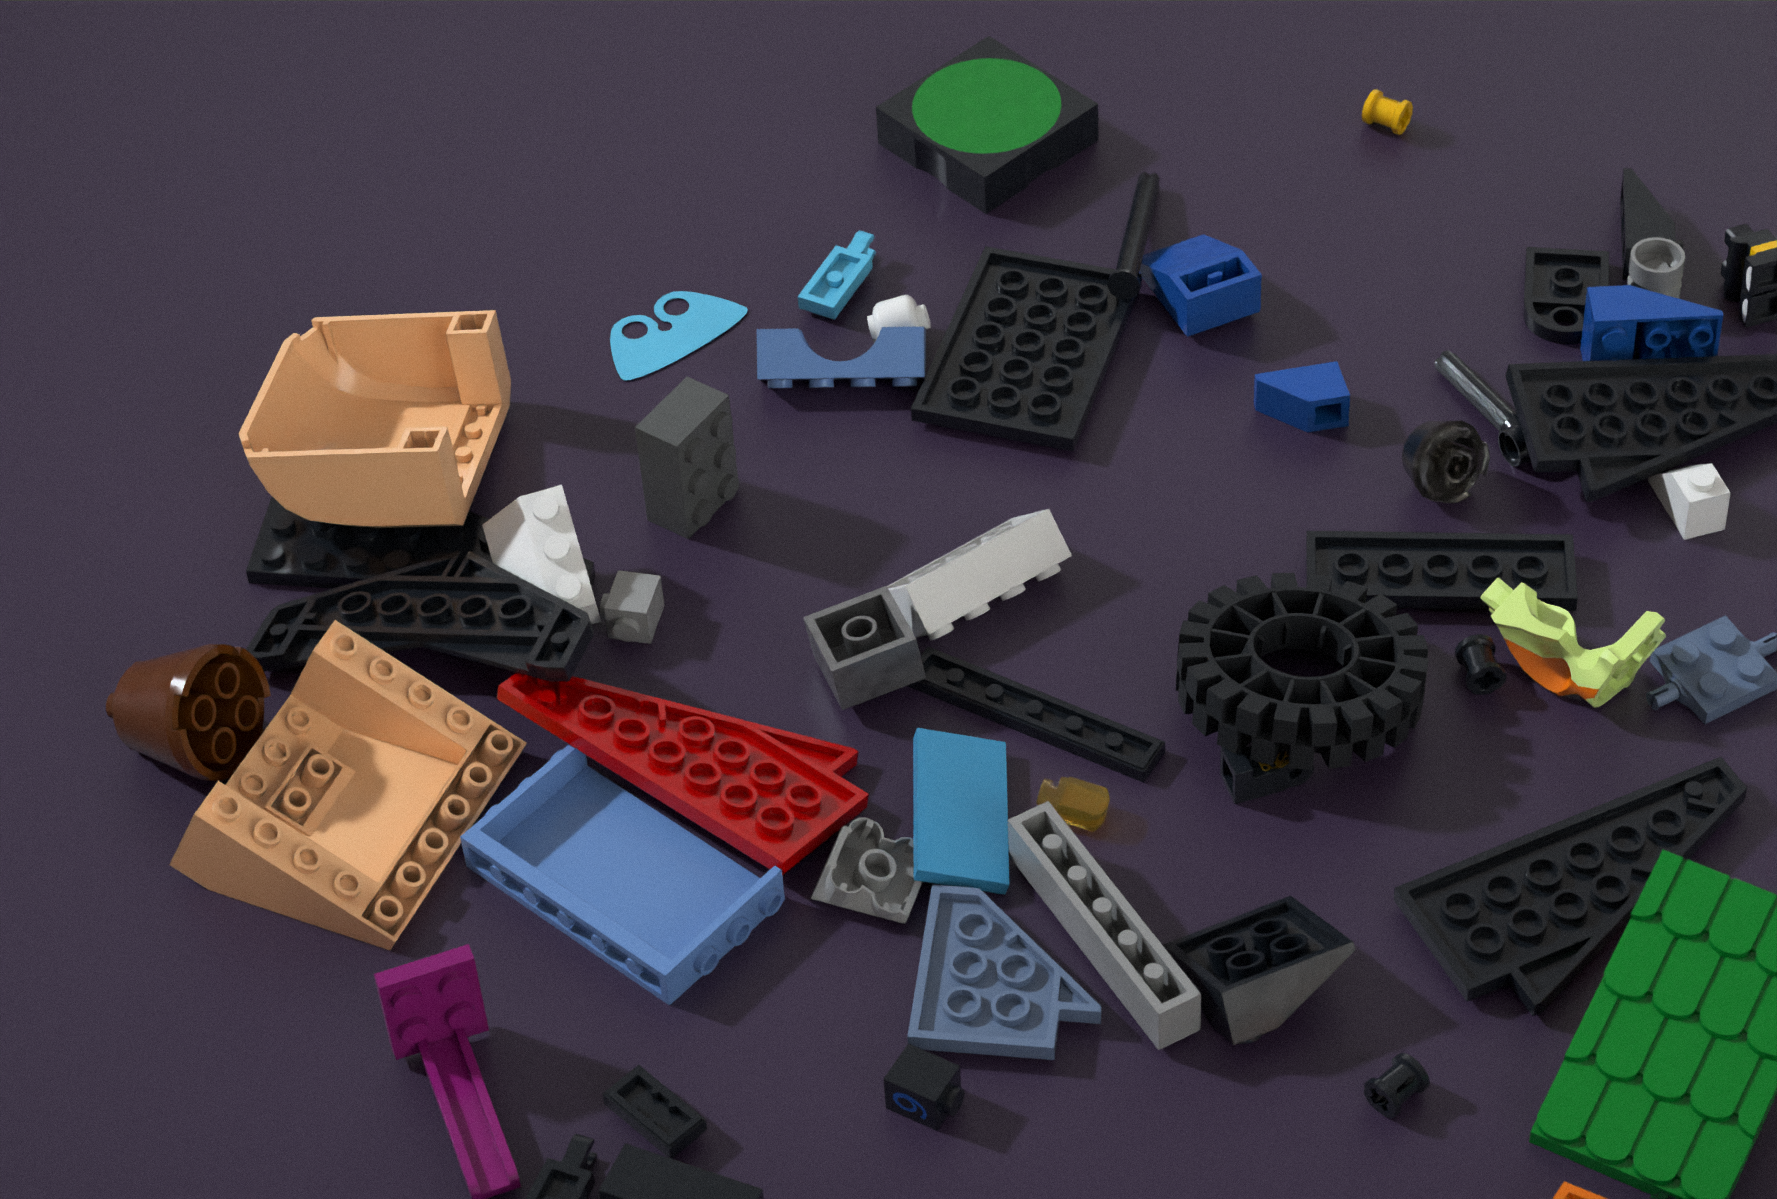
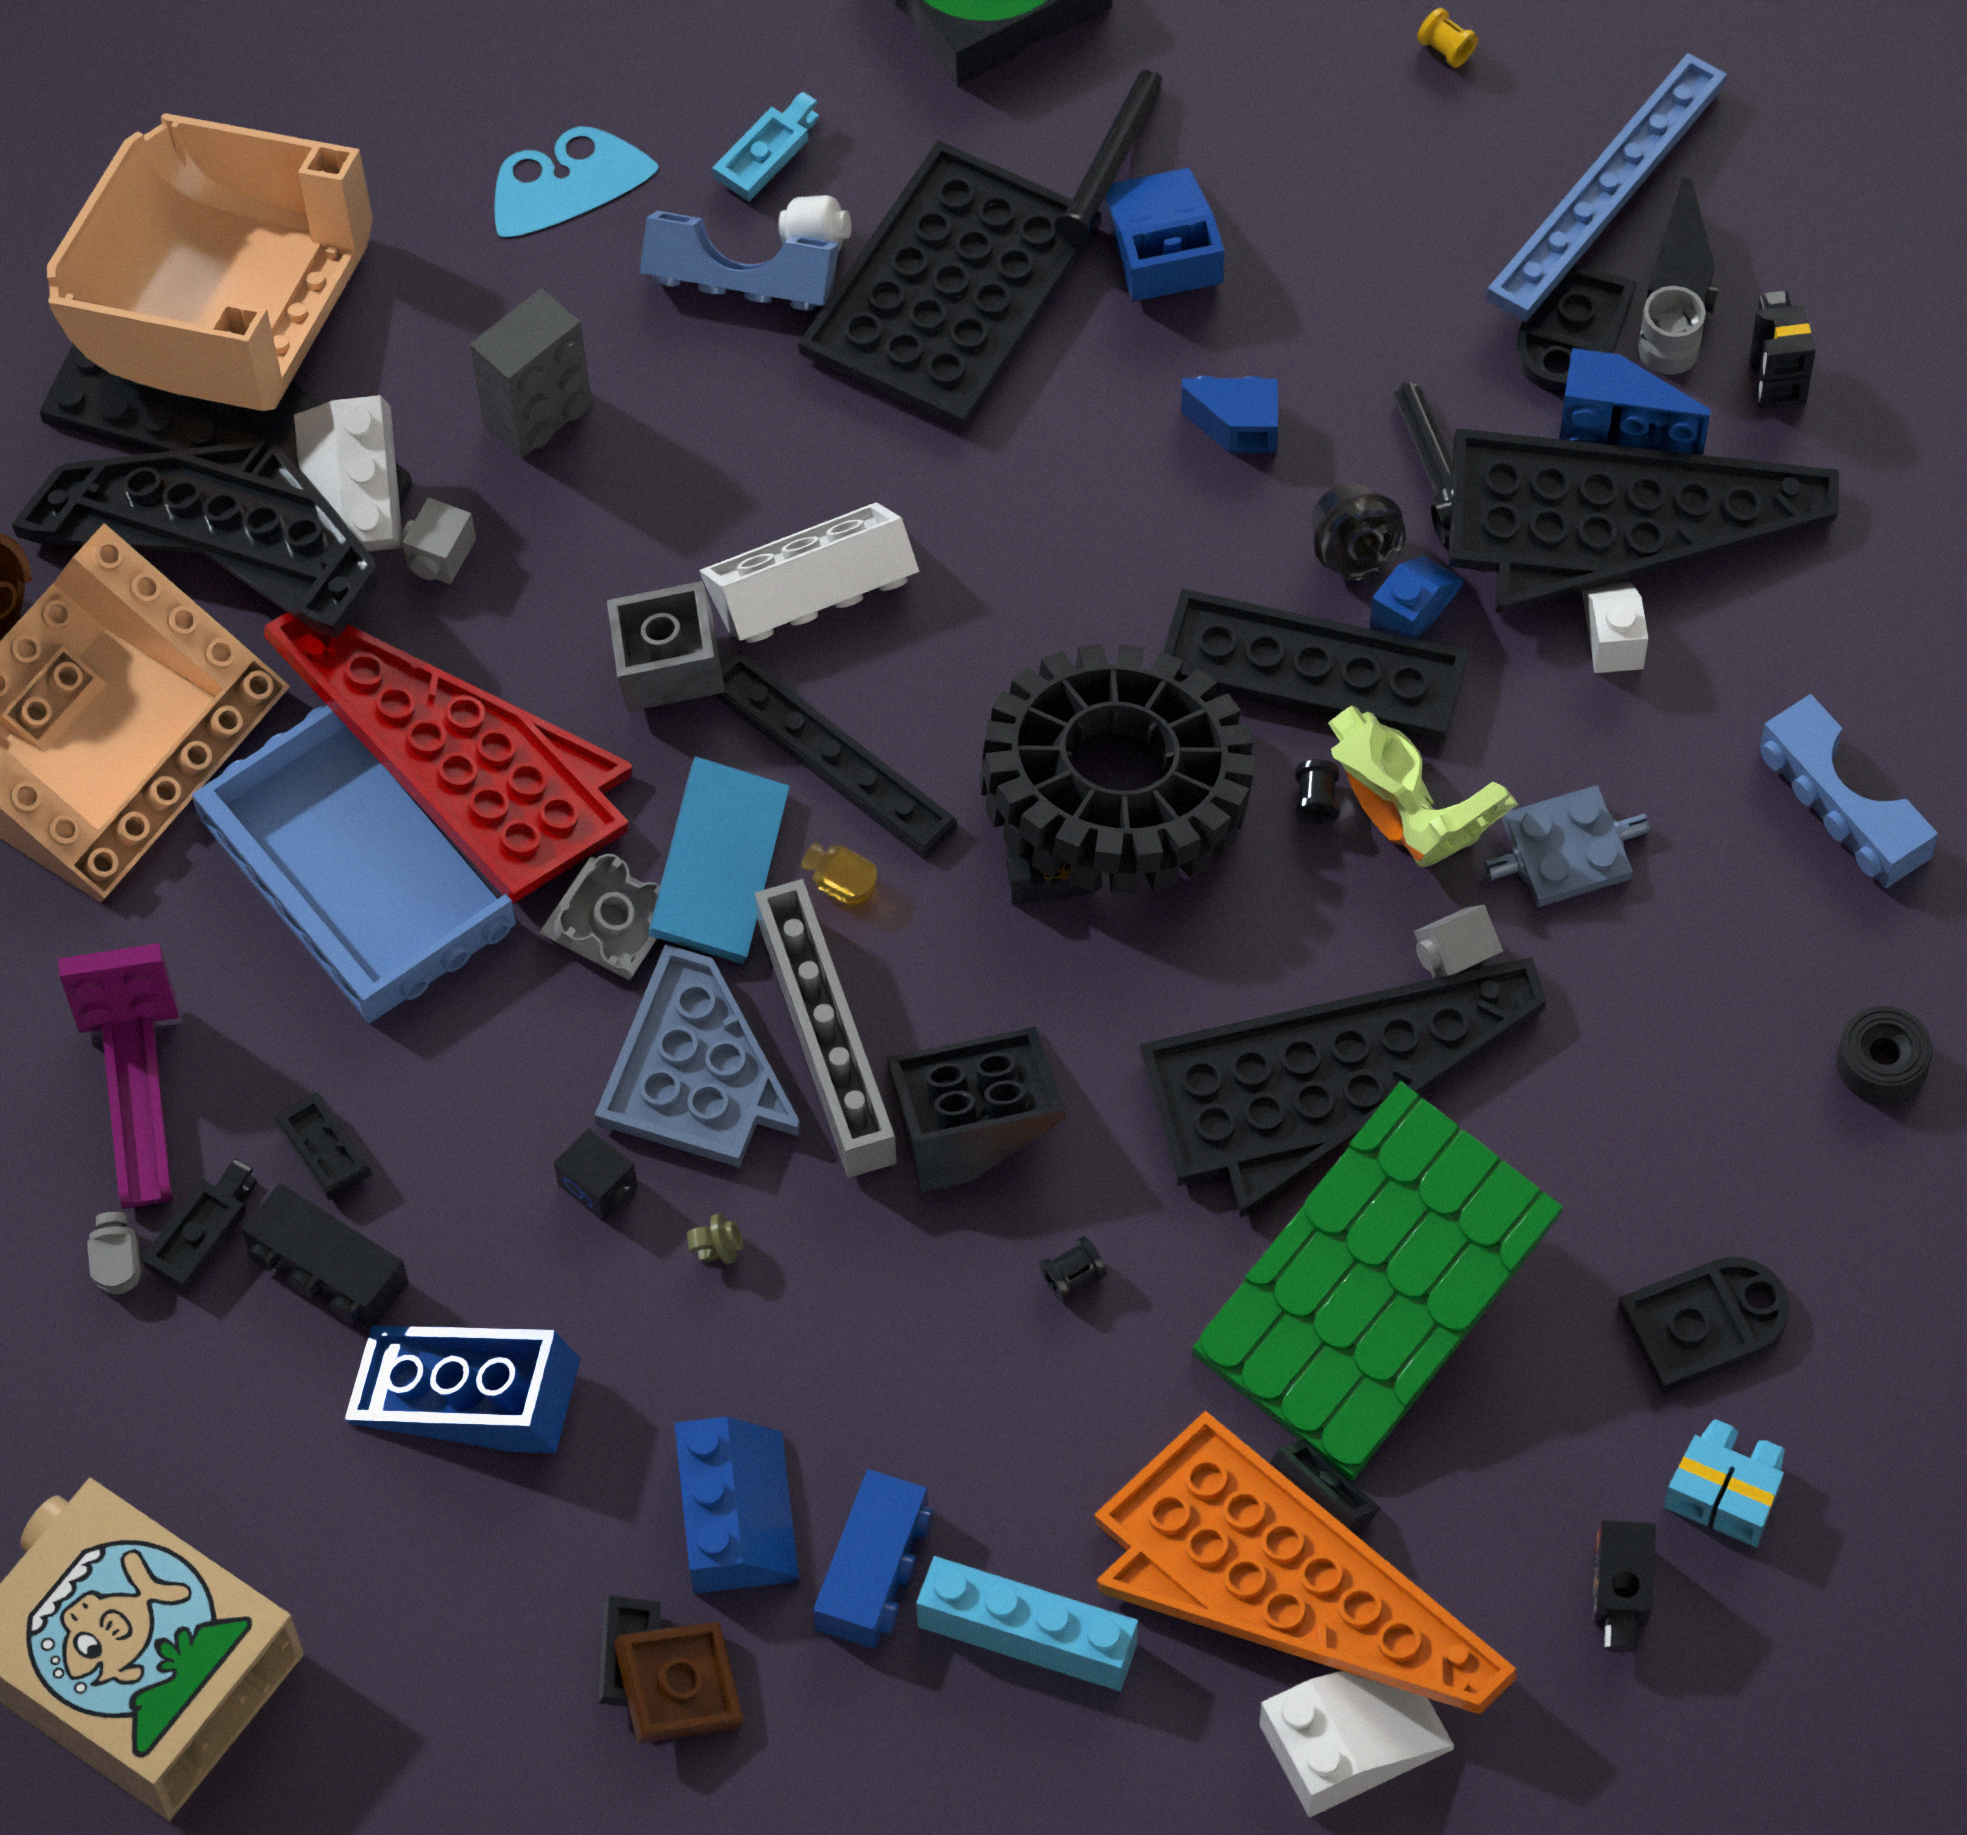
camera: 10 degrees right, 15 degrees up
(1052, 1123) = (717, 1241): none -> olive plate
(1509, 506) = (1413, 597): none -> blue slope
(1559, 190) = (1606, 187): none -> medium blue plate
(1652, 754) = (1457, 941): none -> light grey brick

